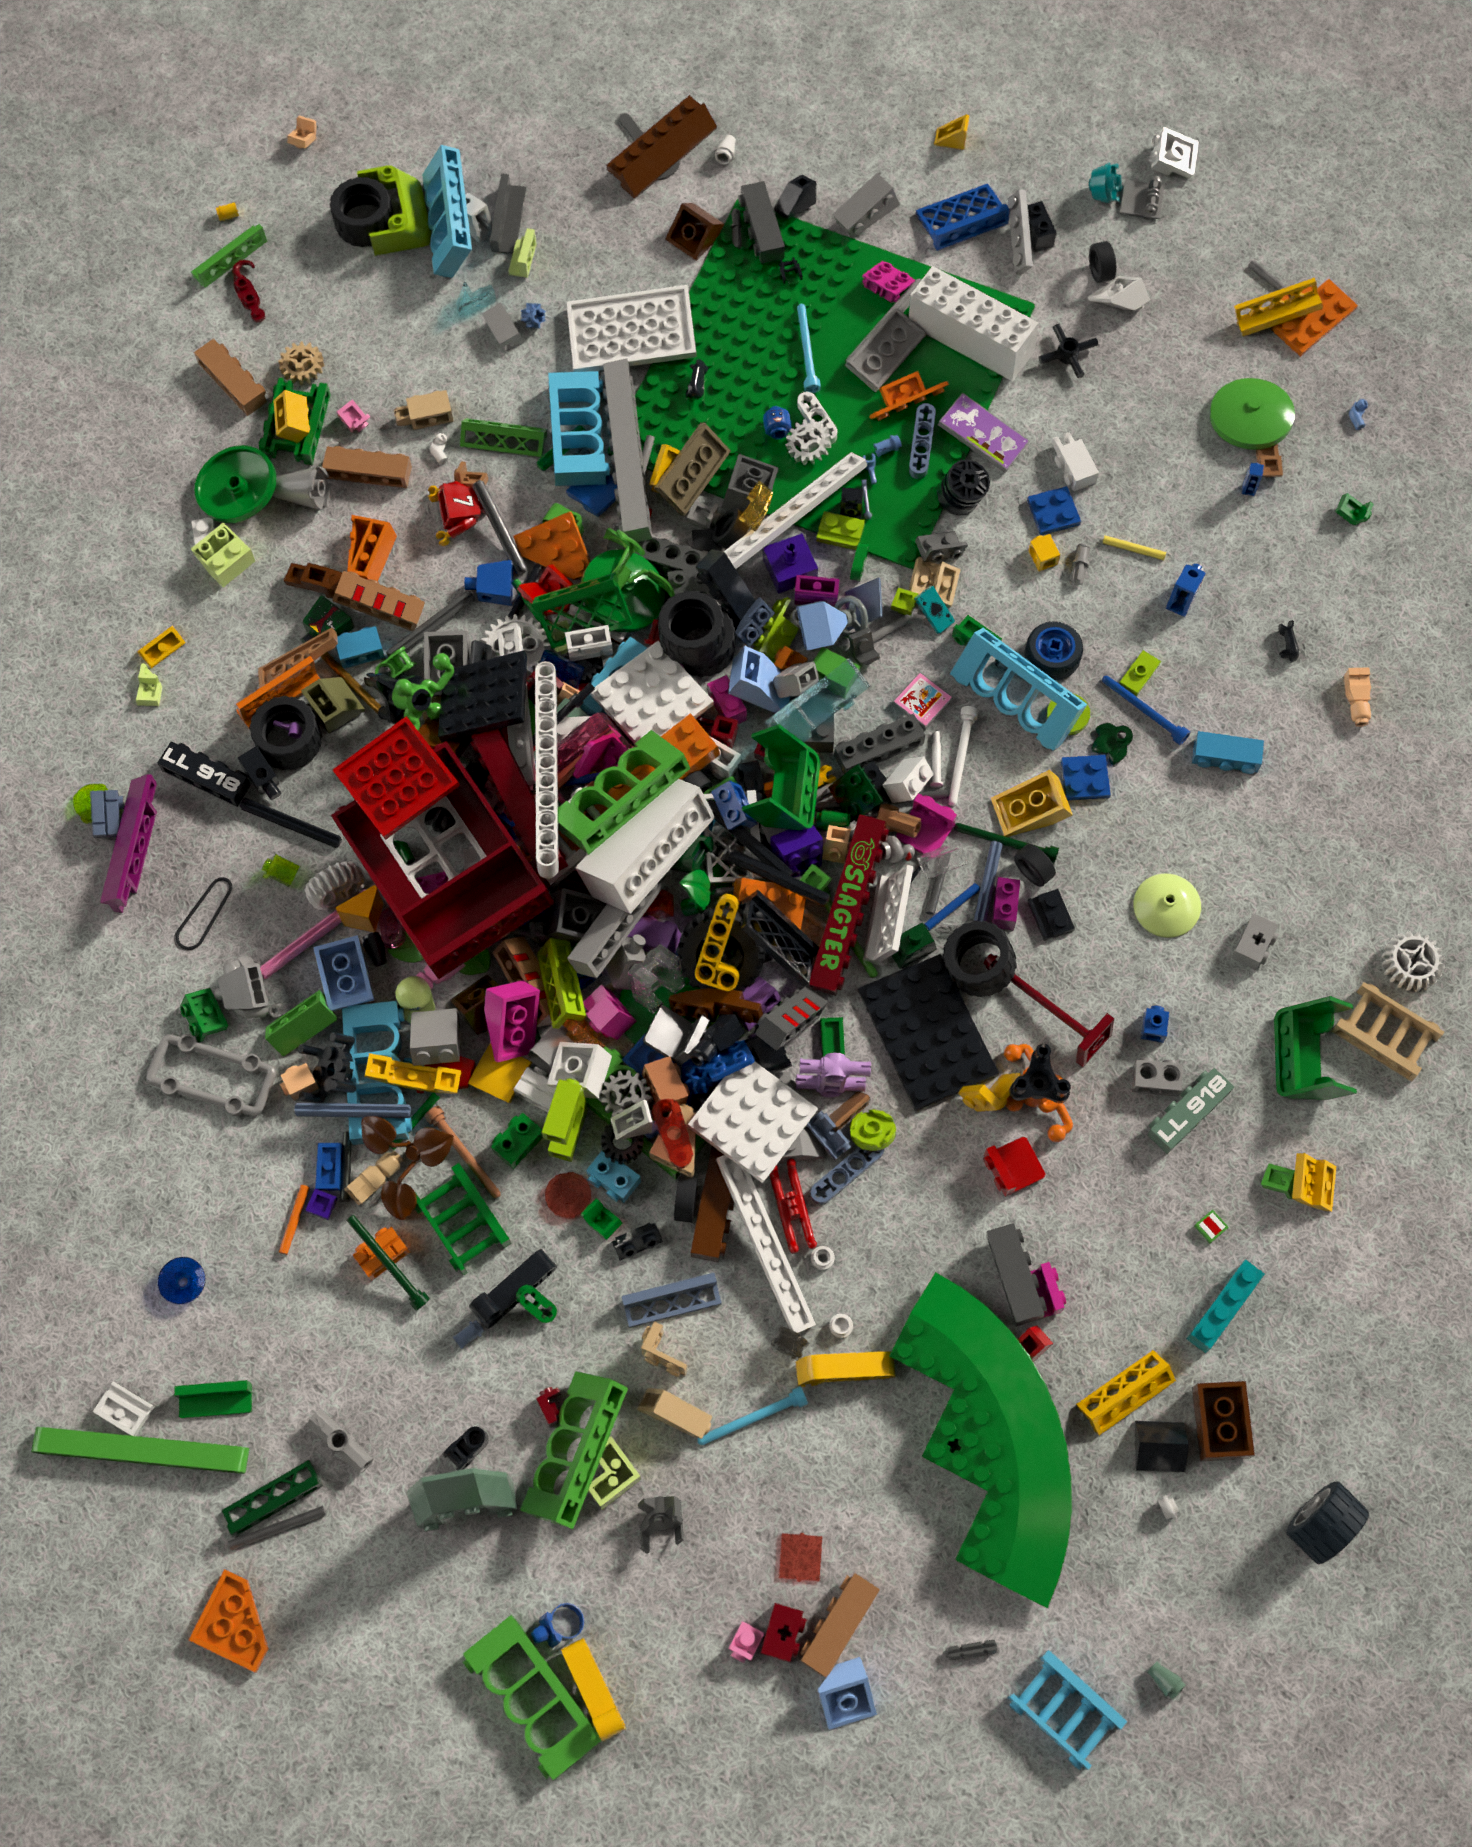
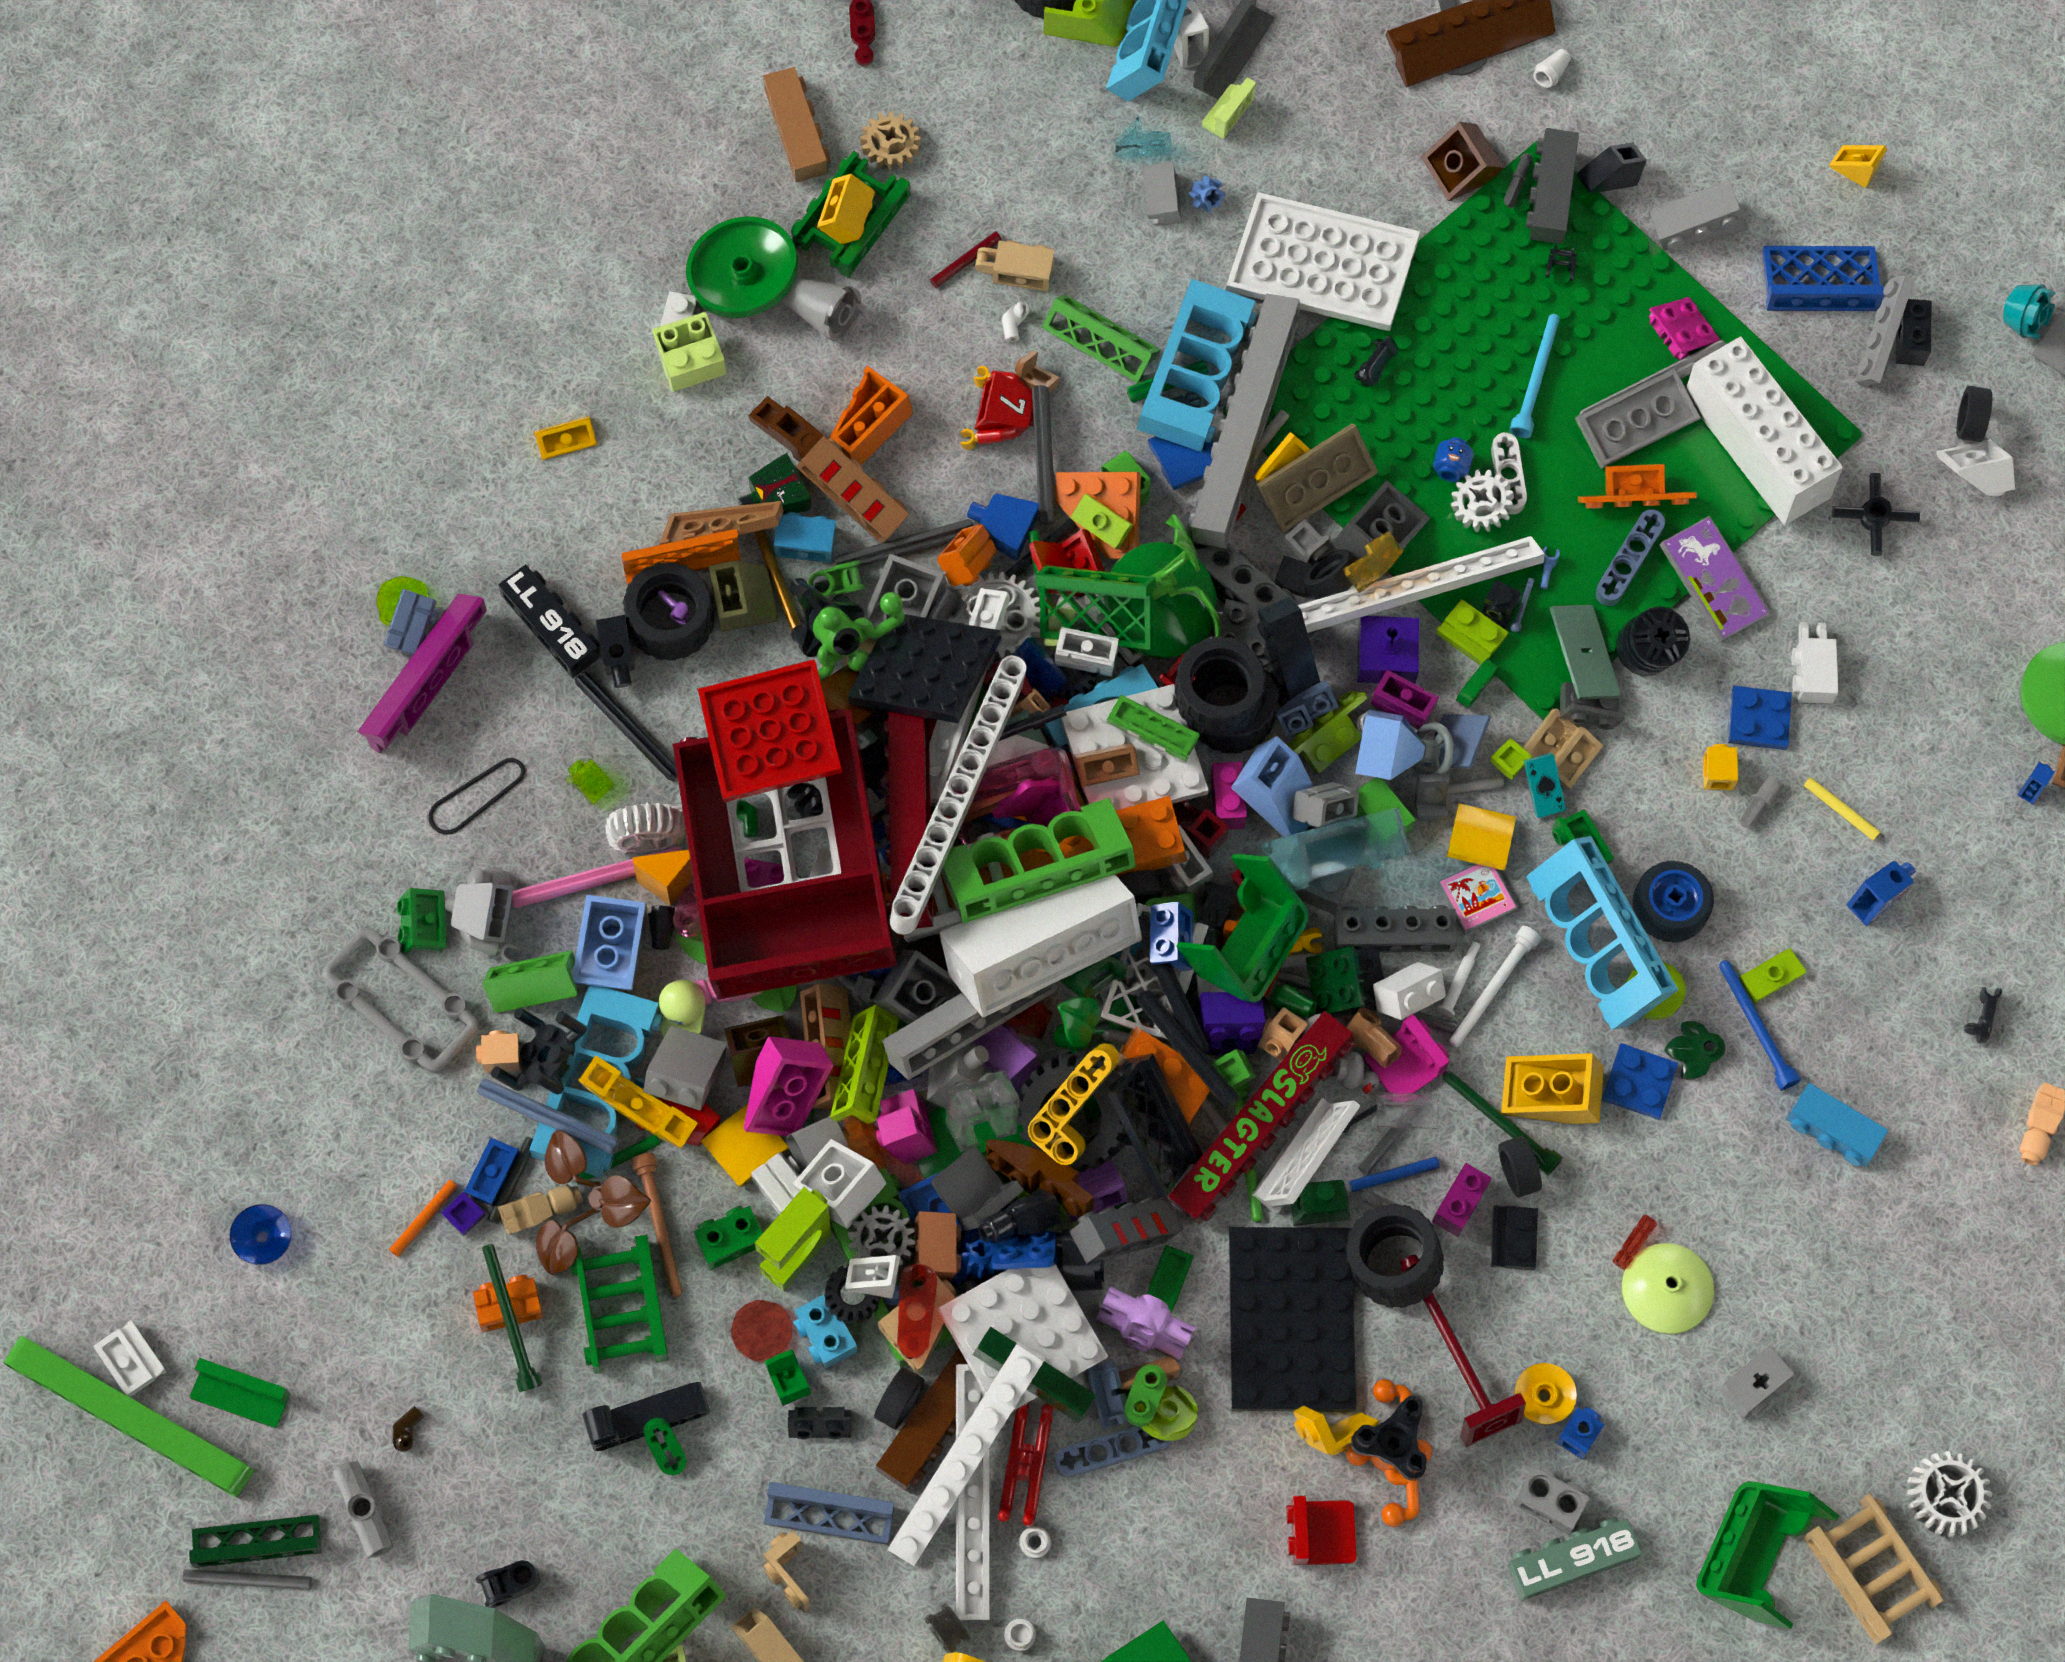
camera: 20 degrees right, 0 degrees up
(149, 688) = (529, 484): yellowish green slope -> none
(344, 1373) = (404, 1429): none -> dark brown arm
(353, 417) = (924, 236): bright pink bracket -> none
(367, 466) = (914, 309): medium nougat brick -> none
(386, 423) = (964, 260): none -> dark red bar
(468, 1334) = (569, 1447): sand blue pin -> none
(477, 613) = (967, 556): none -> orange brick
(549, 1410) = (623, 1580): dark red bracket -> none
(559, 554) = (1101, 521): none -> lime plate
(637, 711) = (1106, 764): none -> medium nougat slope
(658, 674) = (1153, 728): none -> bright green plate
(751, 1216) = (966, 1453): none -> white plate
(774, 1141) = (1048, 1382): none -> dark green panel
(787, 657) = (1330, 770): orange bracket -> none
(854, 1123) = (1145, 1394): none -> bright green plate
(887, 445) = (1582, 545): medium blue pin -> none
(908, 660) = (1481, 836): none -> yellow slope
(931, 522) = (1591, 671): none -> sand green piece
(988, 881) = (1453, 1163): sand blue axle -> none
(1126, 1000) = (1556, 1383): none -> yellow dish
(1131, 884) = (1634, 1242): none -> clear red axle

